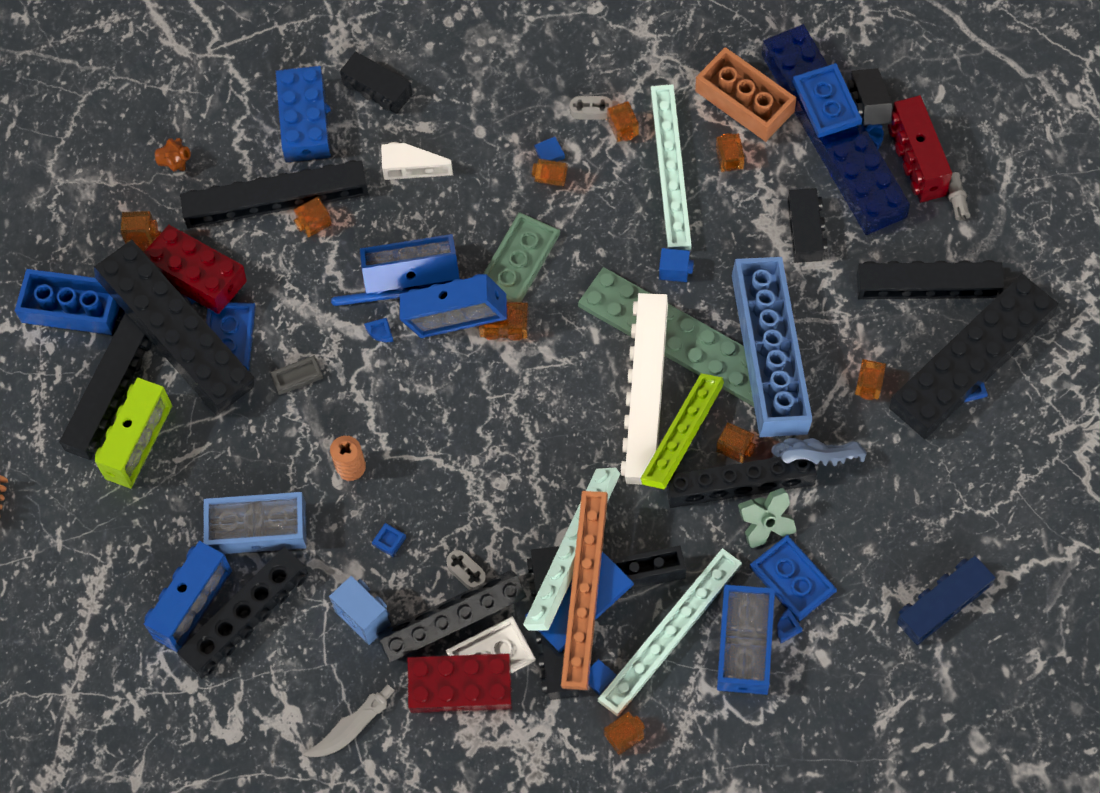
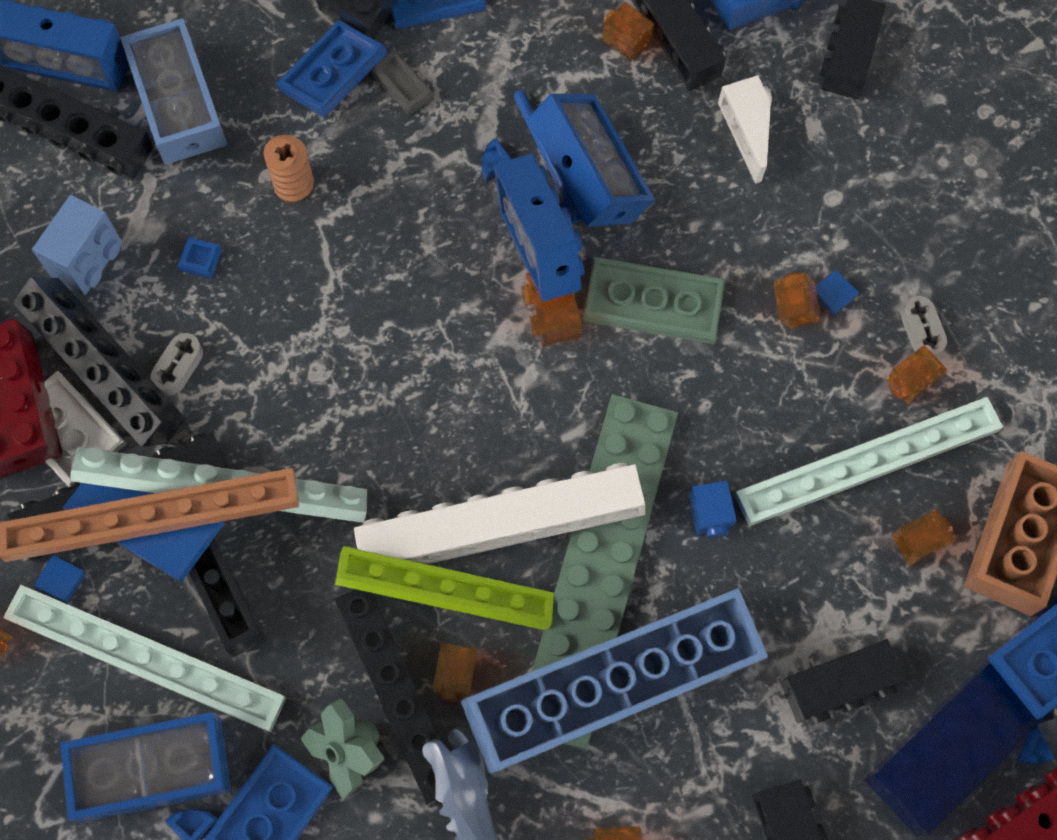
camera: 65 degrees right, 5 degrees up
(270, 417) = (331, 68): none -> blue tile

